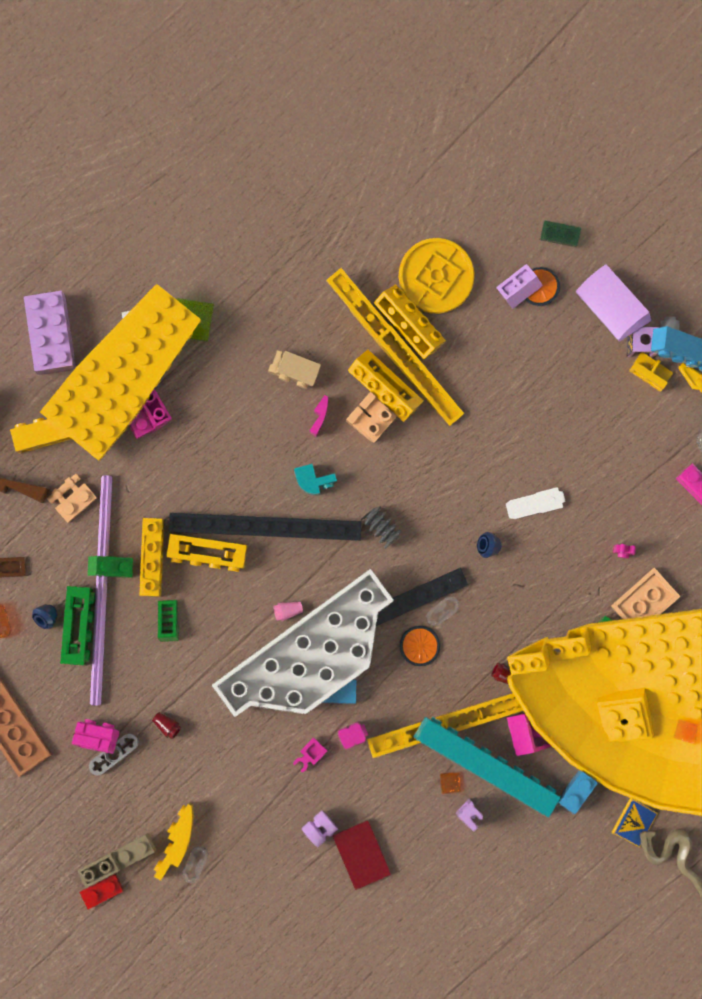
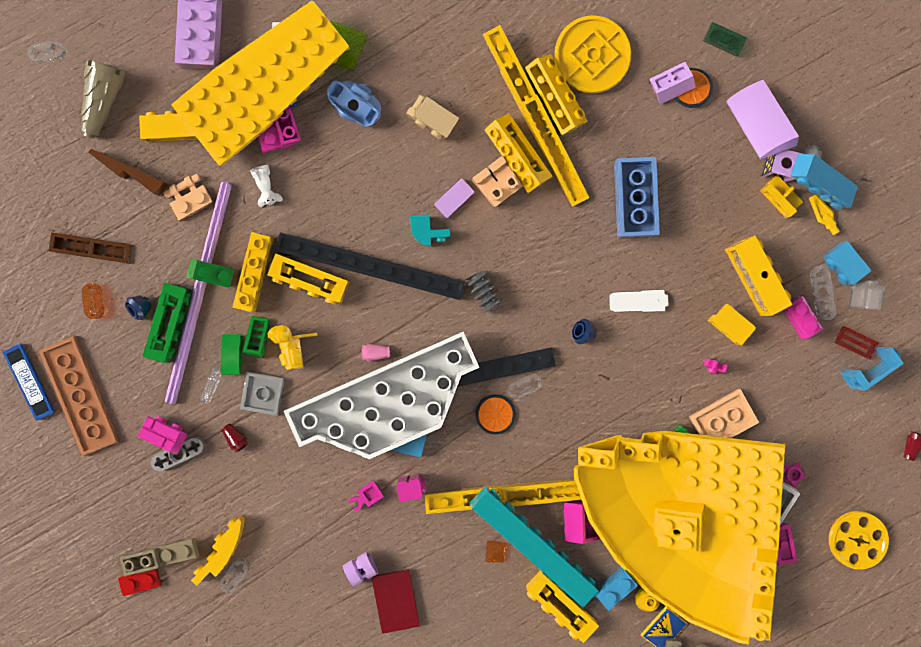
camera: 15 degrees right, 5 degrees up
(133, 677) = (211, 385): none -> clear axle
(143, 467) = (263, 182): none -> white animal
(146, 643) = (231, 356): none -> green slope
(185, 675) = (262, 393): none -> light grey tile
(202, 364) = (343, 92): none -> medium blue piece
(202, 620) = (290, 346): none -> yellow piece
(321, 411) = (450, 164): dark pink slope -> none
(332, 442) = (454, 198): none -> lavender tile
(467, 812) = (504, 586): lavender hinge -> none
(501, 673) = (568, 458): dark red cone -> none
(504, 385) = (636, 178): none -> medium blue brick
(555, 839) = (584, 627): none -> yellow brick
(605, 799) = (642, 598): none -> yellow cone
(631, 506) = (732, 324): none -> yellow panel
(645, 453) = (759, 276): none -> yellow brick
(686, 732) = (734, 555): clear orange slope -> none

